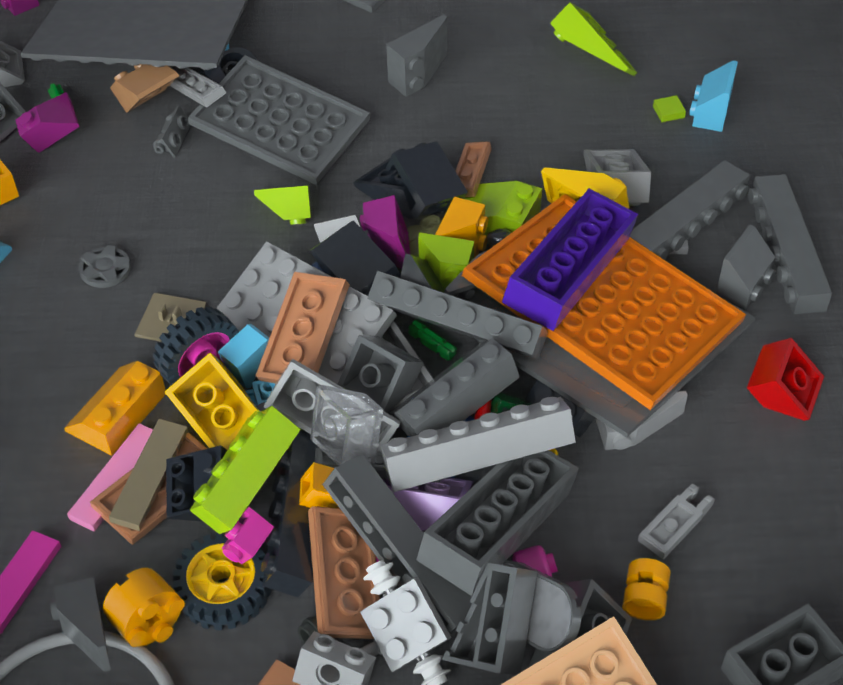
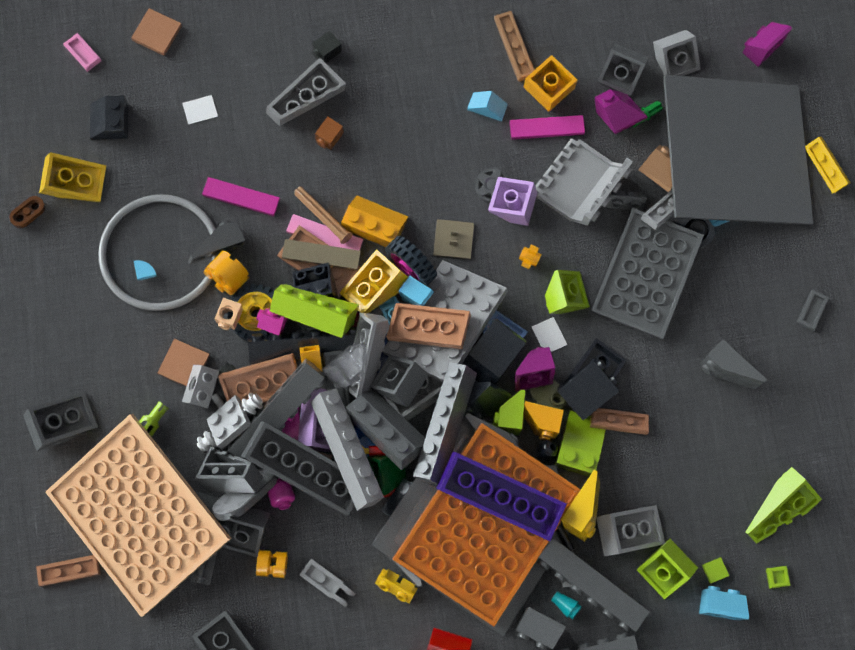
camera: 75 degrees right, 25 degrees up
(40, 201) = (547, 127): none -> dark pink tile
(80, 471) = (323, 215): none -> medium nougat axle
(137, 234) = (513, 200): none -> lavender slope
(138, 169) = (581, 182): none -> light grey hinge
(215, 591) = (228, 306): none -> light nougat brick
(223, 231) = (530, 256): none -> light orange gear
(668, 145) = (667, 569): none -> lime slope
(678, 59) = (778, 577): none -> lime tile
(689, 426) = (388, 582): none -> yellow hinge
(714, 244) = (566, 604): none -> teal cone

